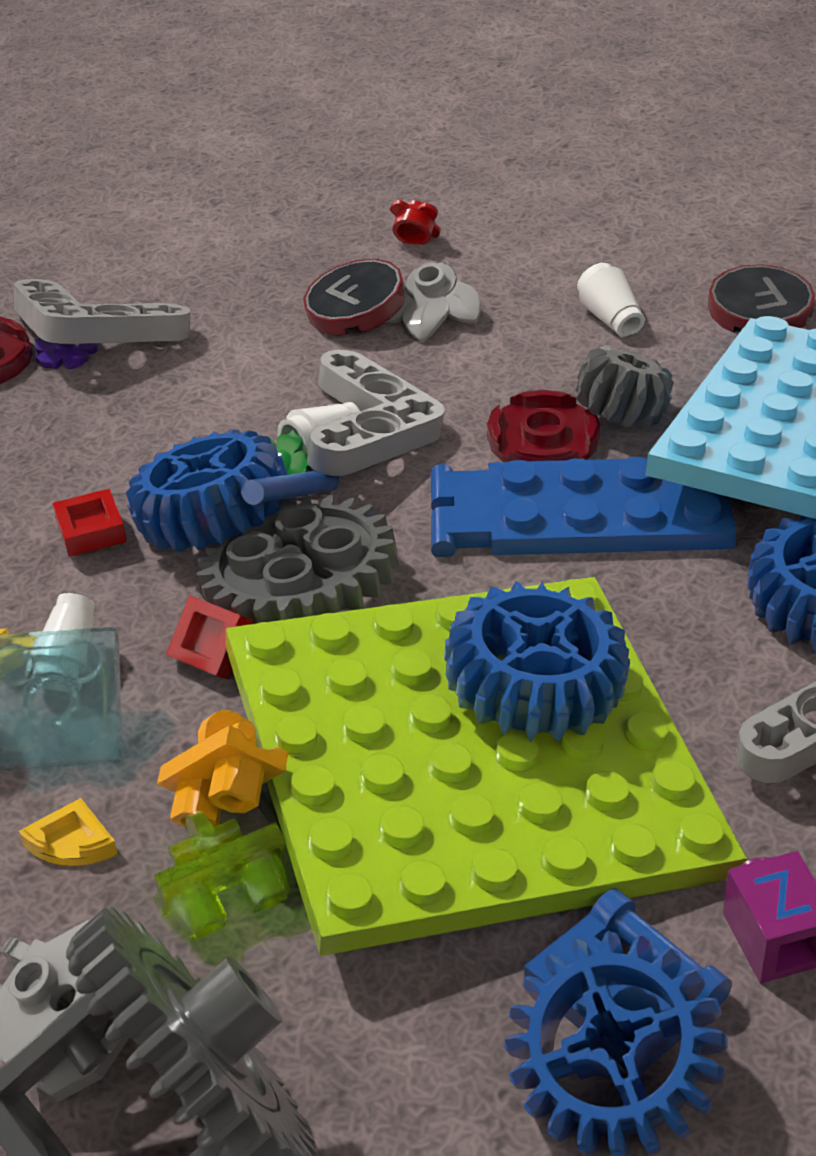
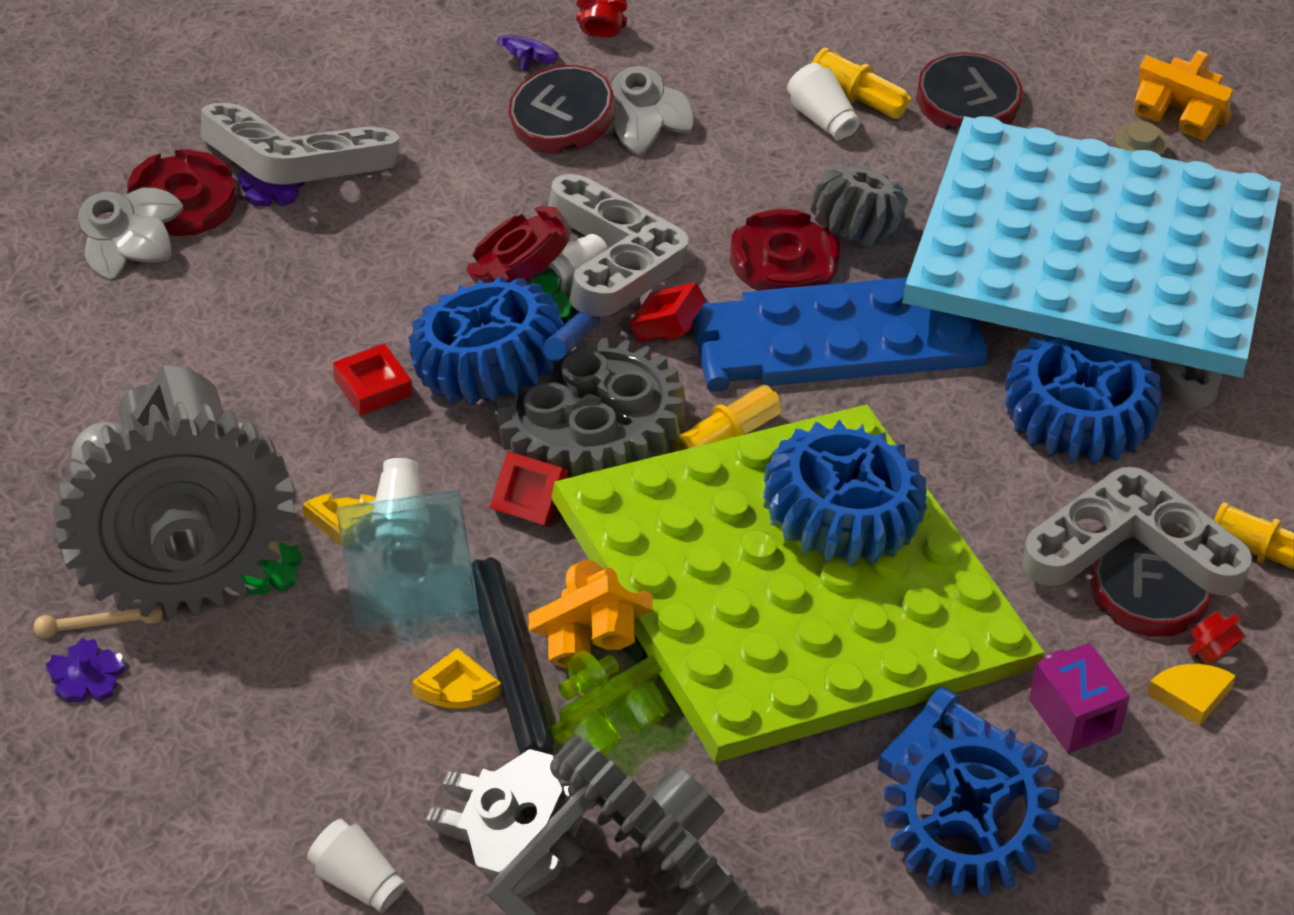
camera: 15 degrees left, 5 degrees up
(136, 815) = (511, 658): none -> black axle
(274, 405) = (520, 246): none -> dark red tile
(339, 249) = (527, 49): none -> dark purple plant
(405, 478) = (667, 313): none -> red plate
(458, 578) = (733, 420): none -> yellow axle
(655, 288) = (863, 85): none -> yellow axle

